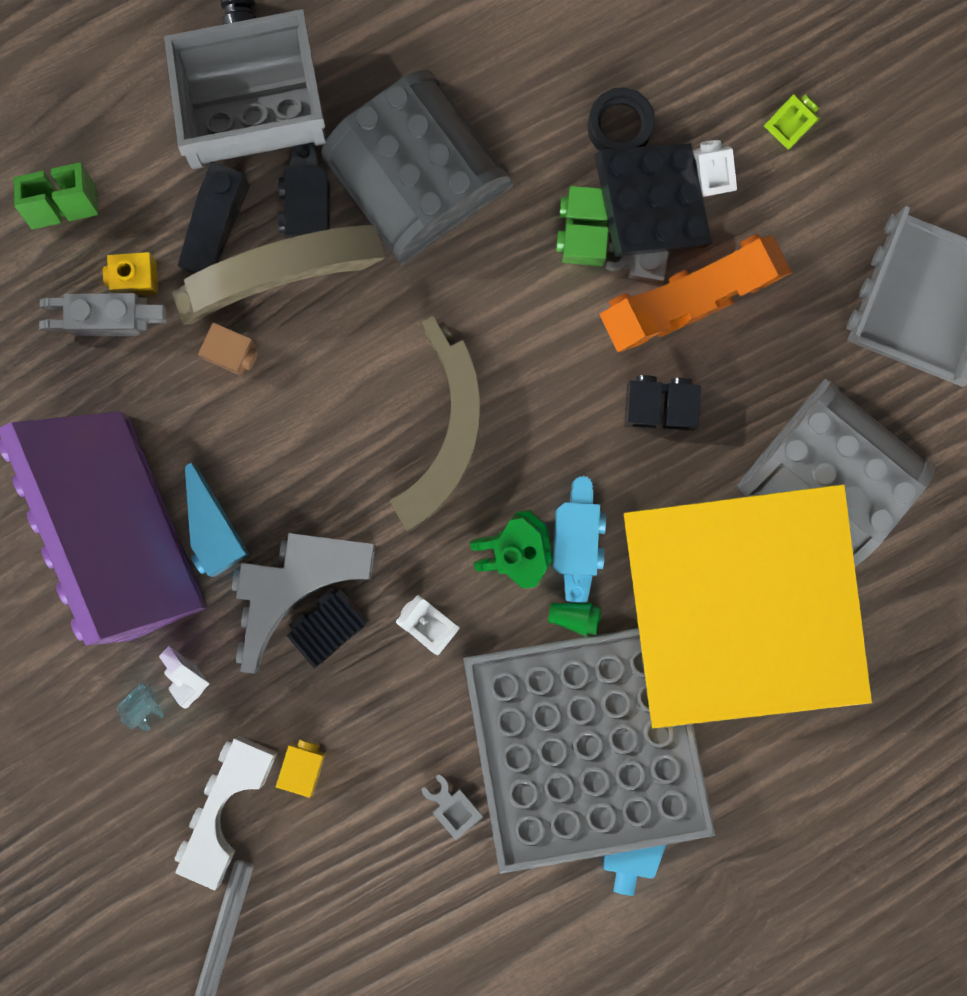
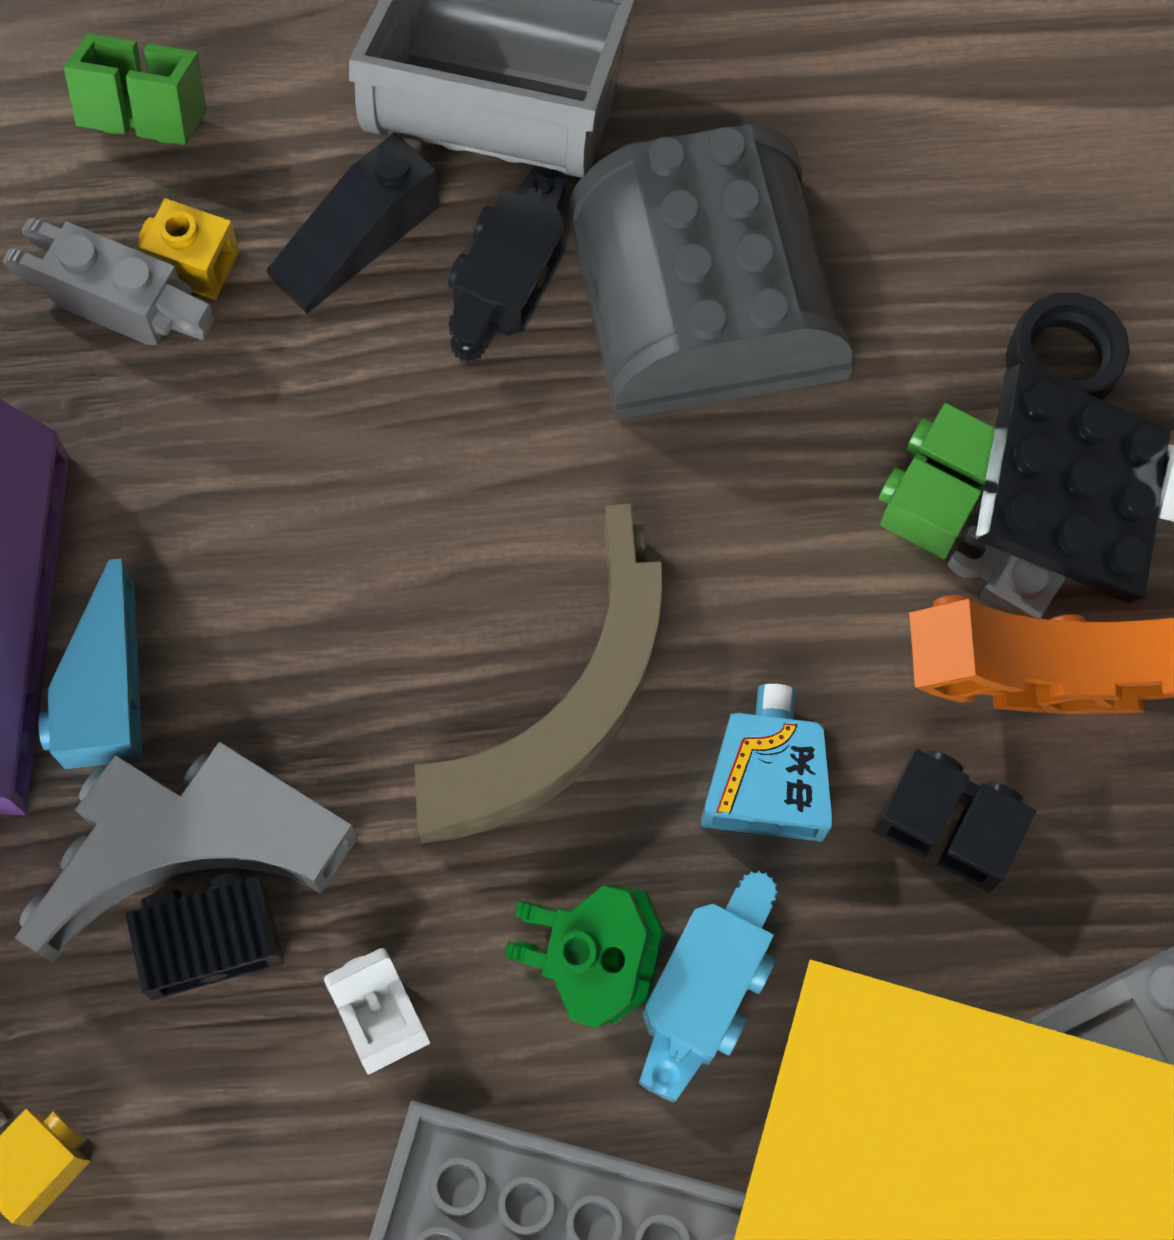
camera: 25 degrees right, 15 degrees down
(228, 349) = (276, 419): medium nougat brick -> none
(277, 264) = (420, 314): dark tan arch -> none
(563, 421) = (771, 773): none -> medium azure torso
(577, 617) = (645, 1121): green cone -> none

